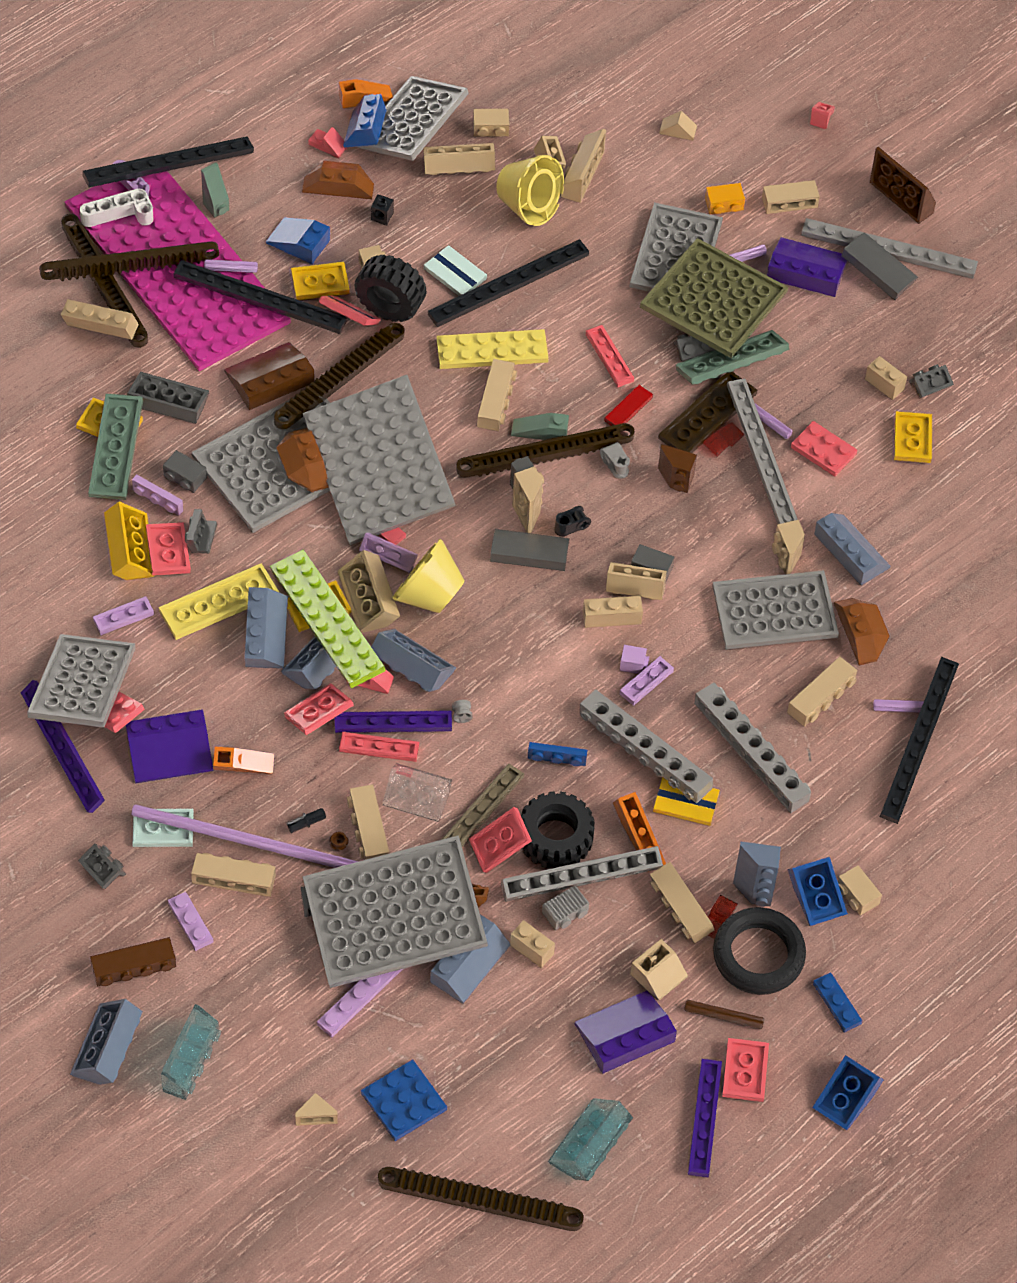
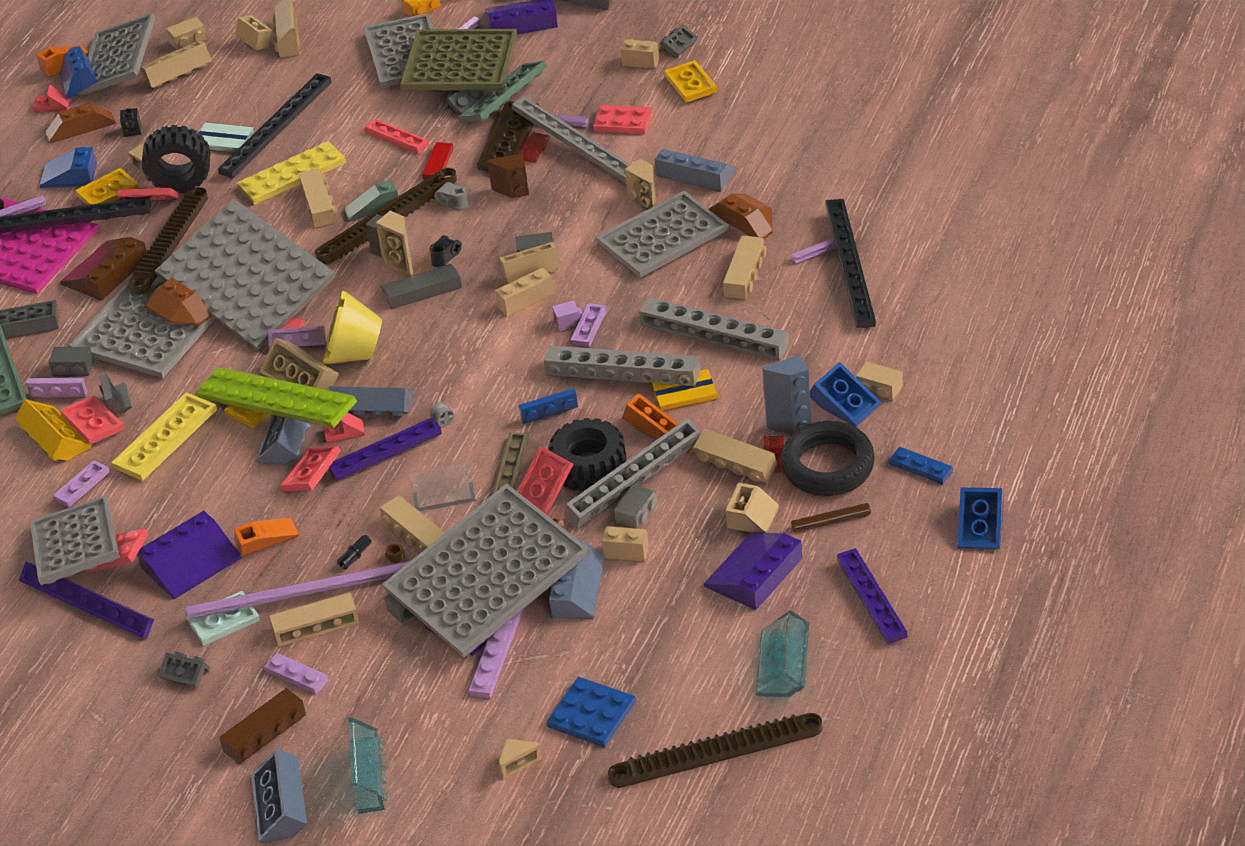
camera: 20 degrees left, 15 degrees down
(265, 628) = (221, 433): sand blue slope -> none
(379, 746) = (383, 473): coral tile -> none
(532, 188) = (252, 52): light yellow cone -> none
(745, 1069) = (880, 546): coral plate -> none

